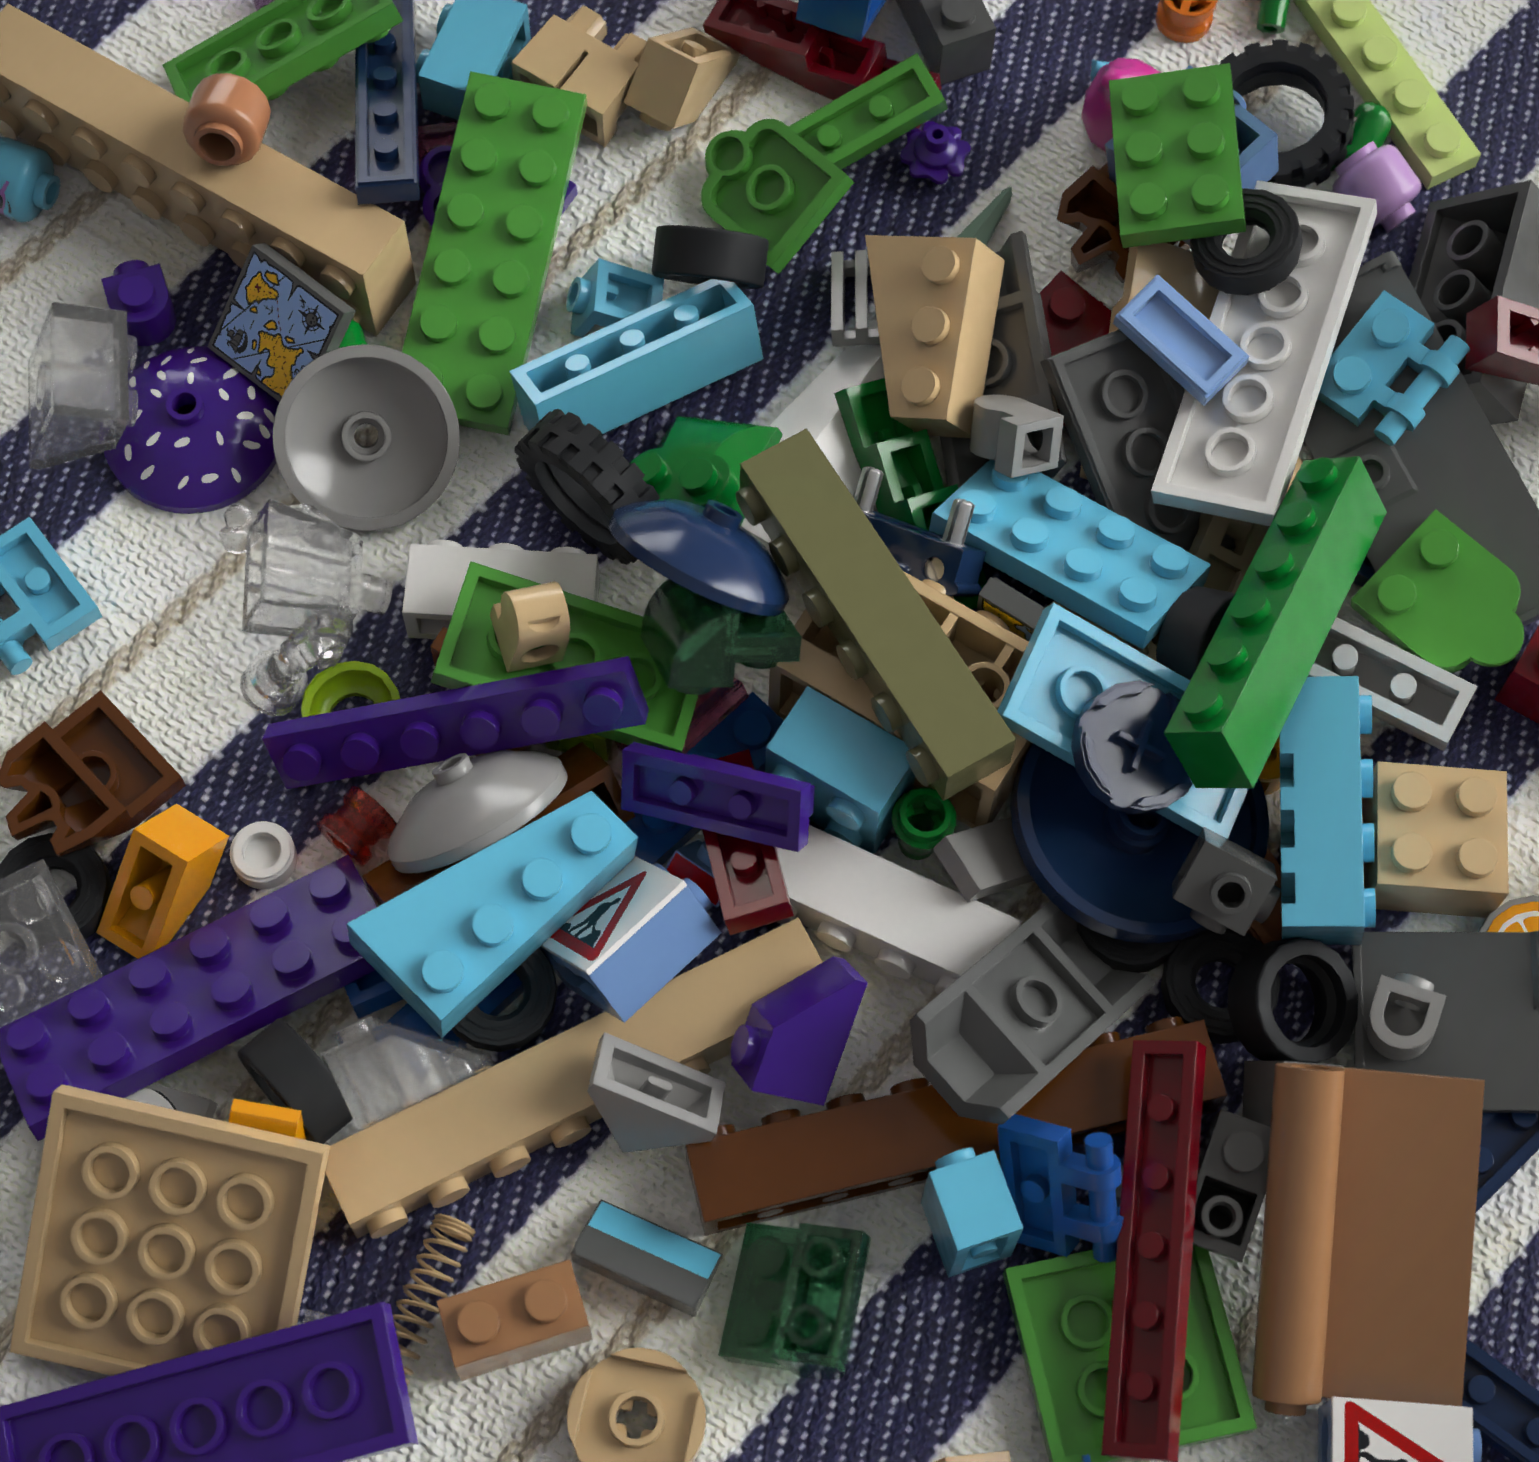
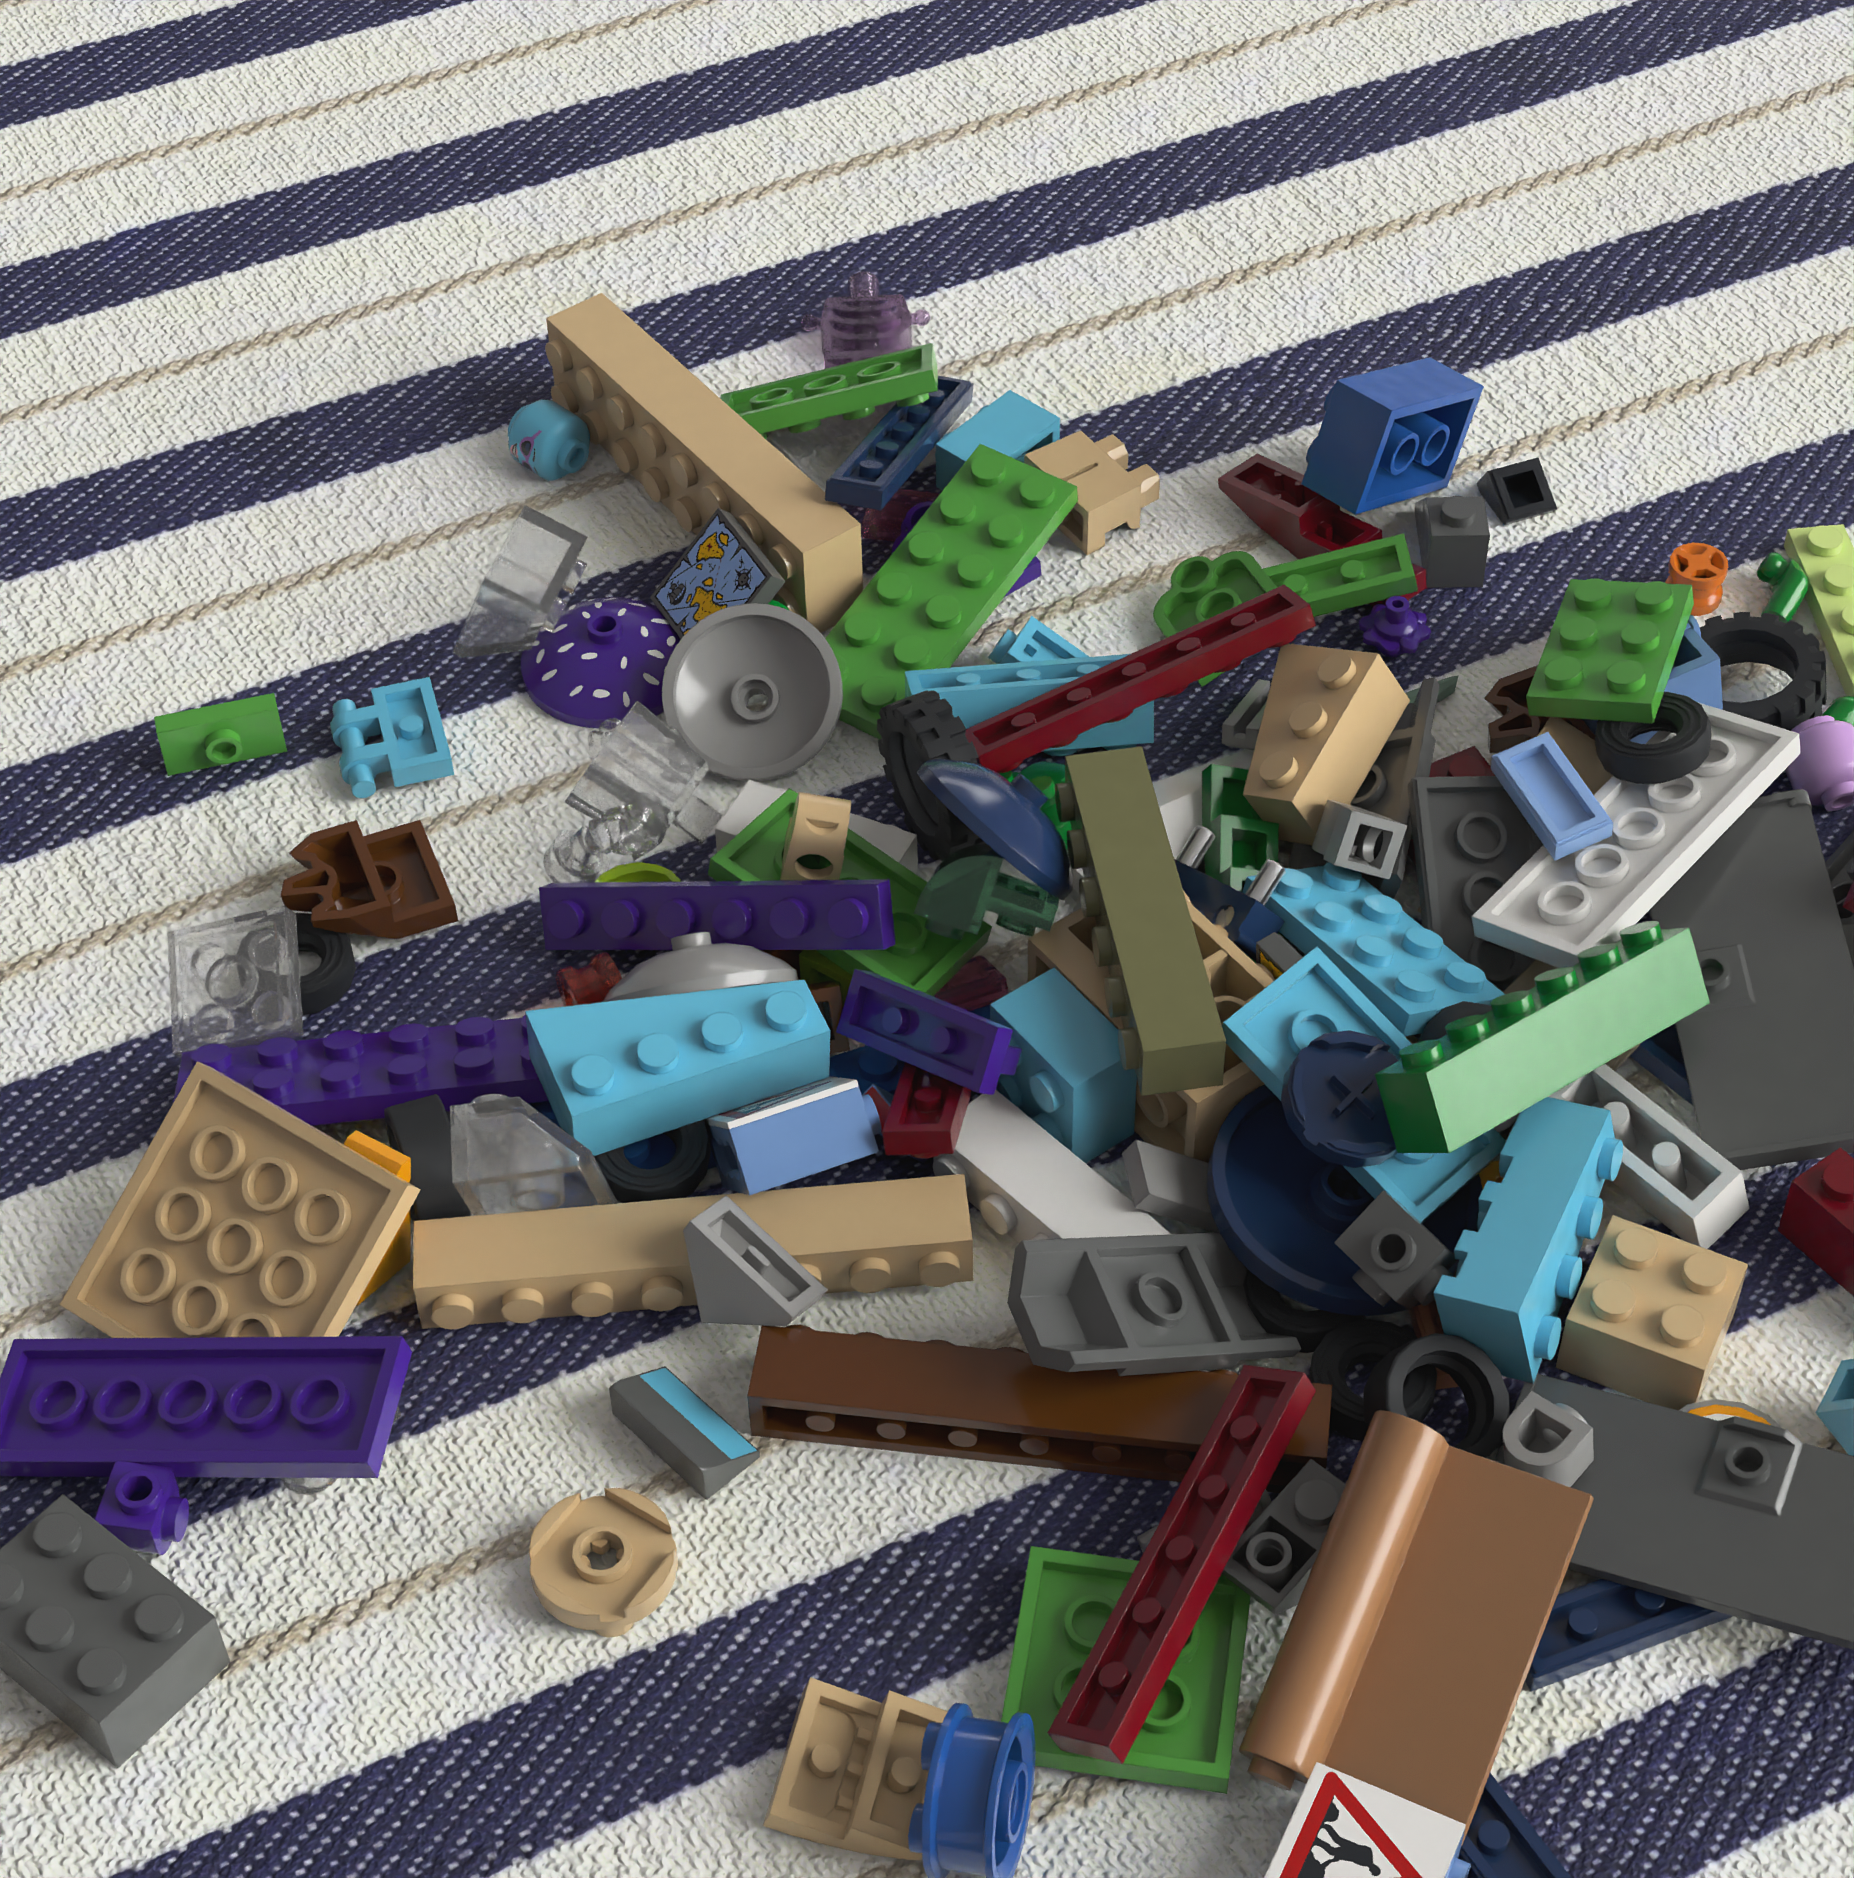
camera: 25 degrees right, 20 degrees down
(145, 297) = (612, 555): dark purple plate -> none
(161, 880) = (396, 975): light orange slope -> none
(226, 119) = (739, 404): nougat head -> none
(263, 855) = (498, 992): white tile -> none
(454, 1228) = (512, 1343): tan piece -> none
(514, 1320) = (528, 1428): medium nougat brick -> none
(678, 77) = (1176, 511): tan slope -> none
(706, 253) = (1123, 626): black tyre -> none
(747, 321) = (1140, 678): none -> dark red plate
(796, 1299) = (810, 1503): clear green brick -> none
(799, 1033) = (912, 1263): dark purple slope -> none
(922, 821) = (1115, 1128): green cone -> none
(970, 1211) = (1012, 1473): medium azure brick -> none
(1042, 1183) = (1096, 1474): blue plate -> none
(1374, 357) = (1753, 871): medium azure plate -> none
(1445, 599) = (1745, 1098): bright green plate -> none

